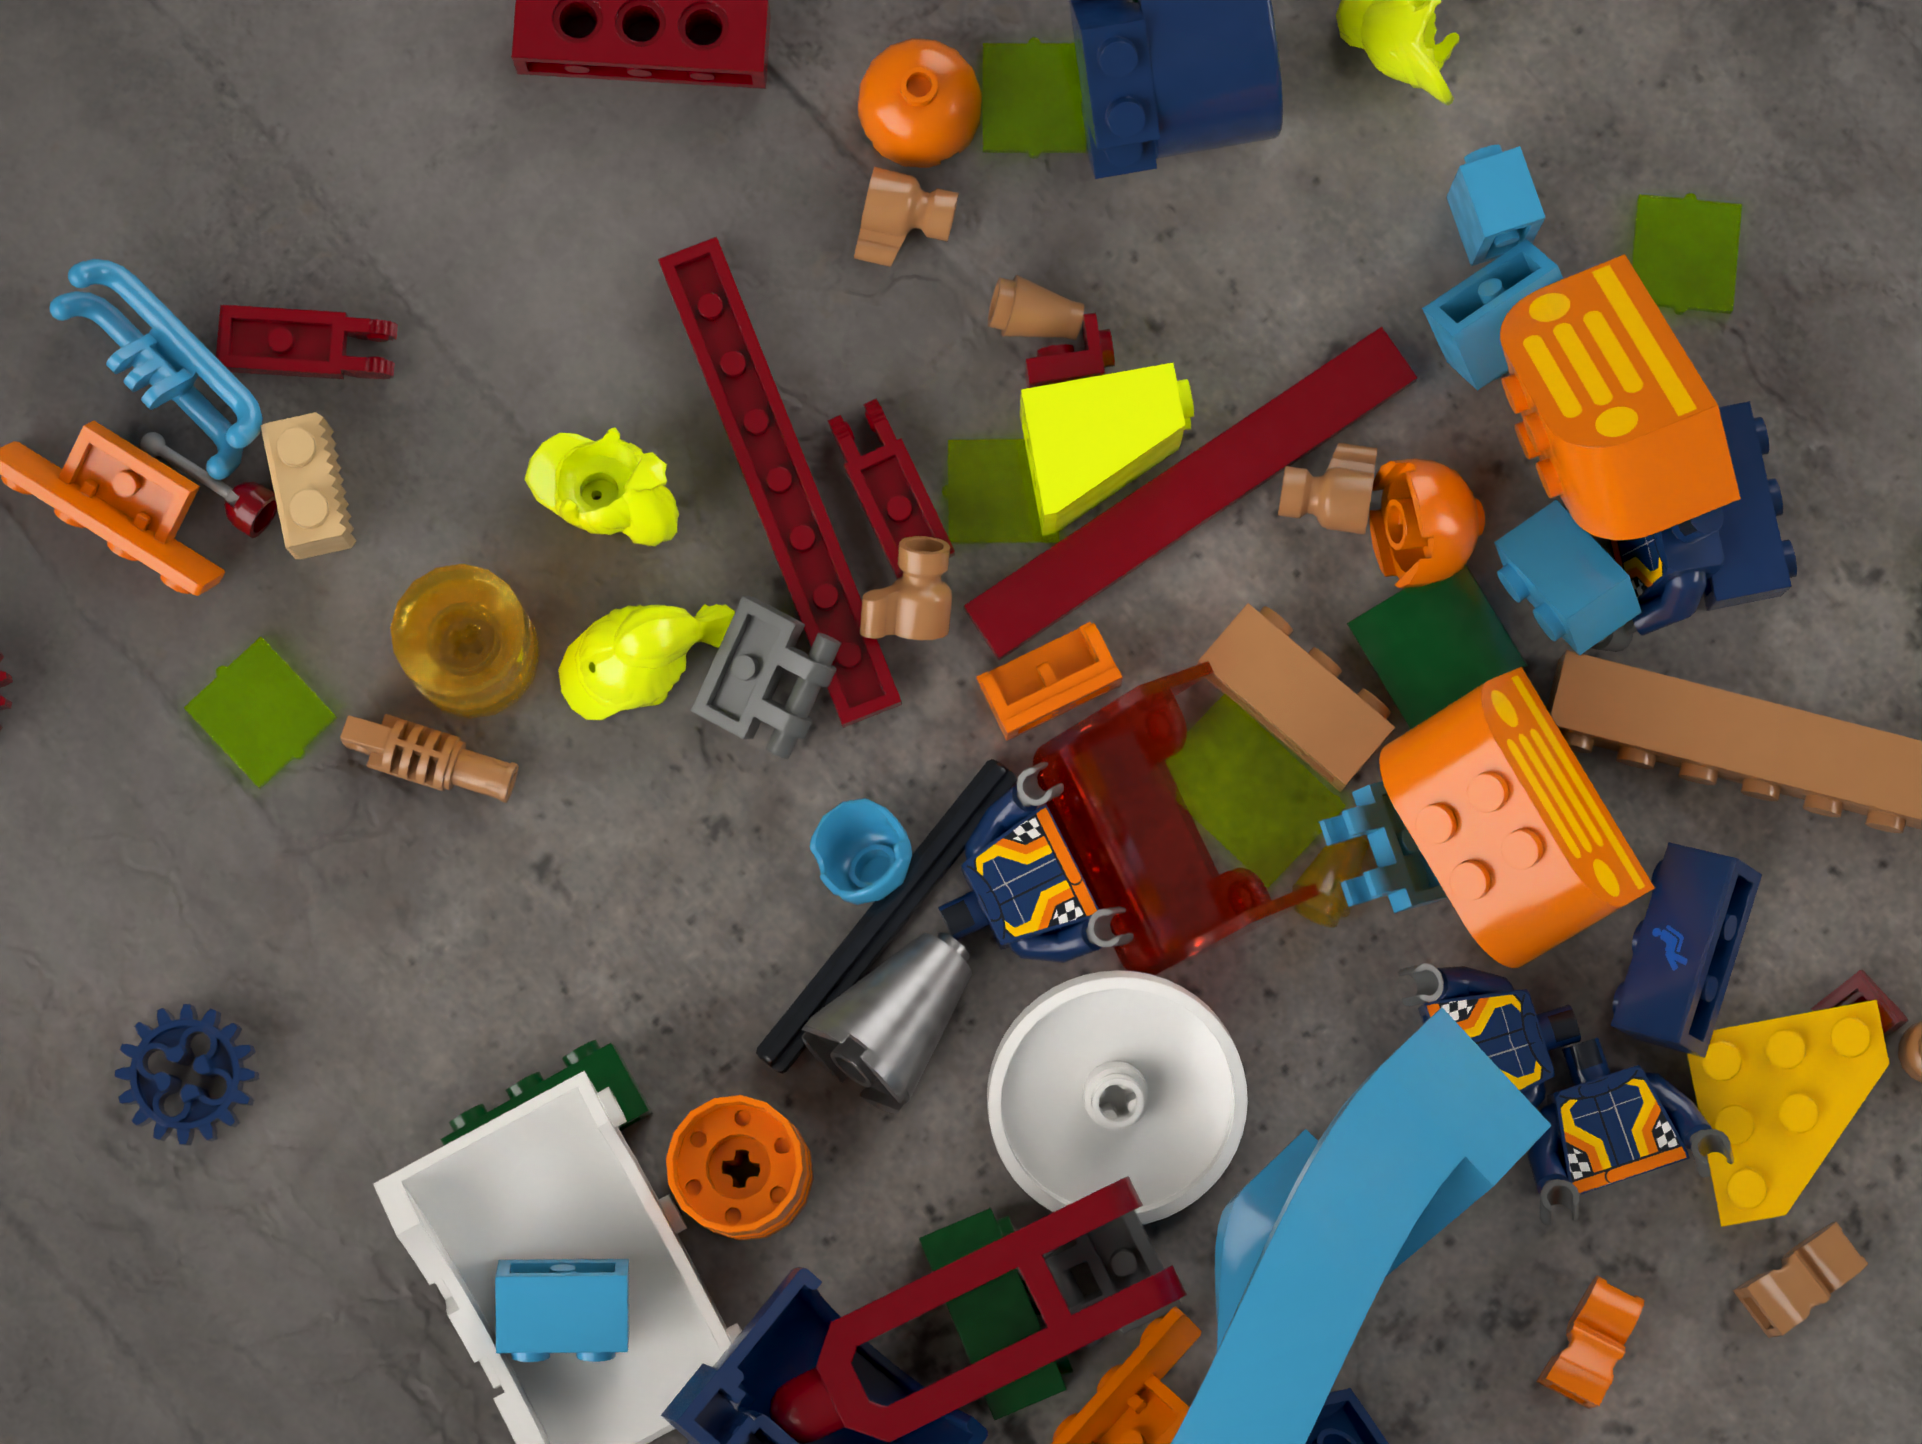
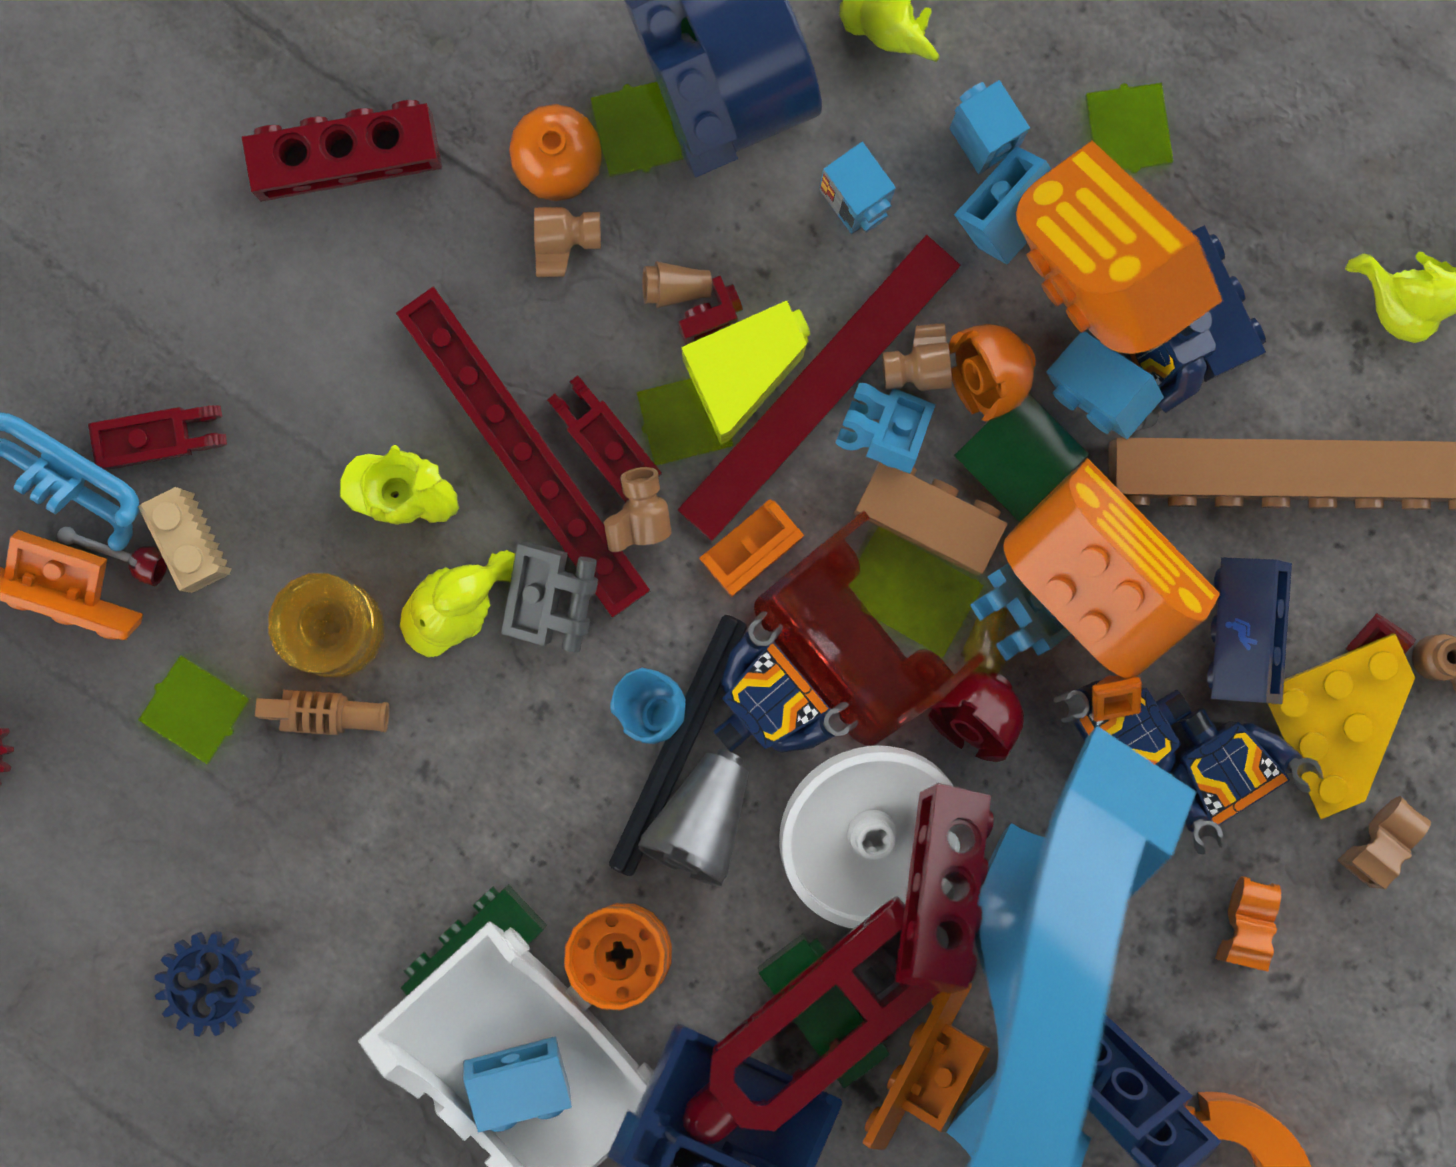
camera: 20 degrees left, 5 degrees up
(1139, 1257) = (921, 957): none -> dark red brick
(1279, 574) = (900, 427): none -> dark azure plate
(1297, 969) = (982, 713): none -> dark red cylinder
(1303, 245) = (857, 189): none -> dark azure brick
(1481, 989) = (1116, 697): none -> orange slope

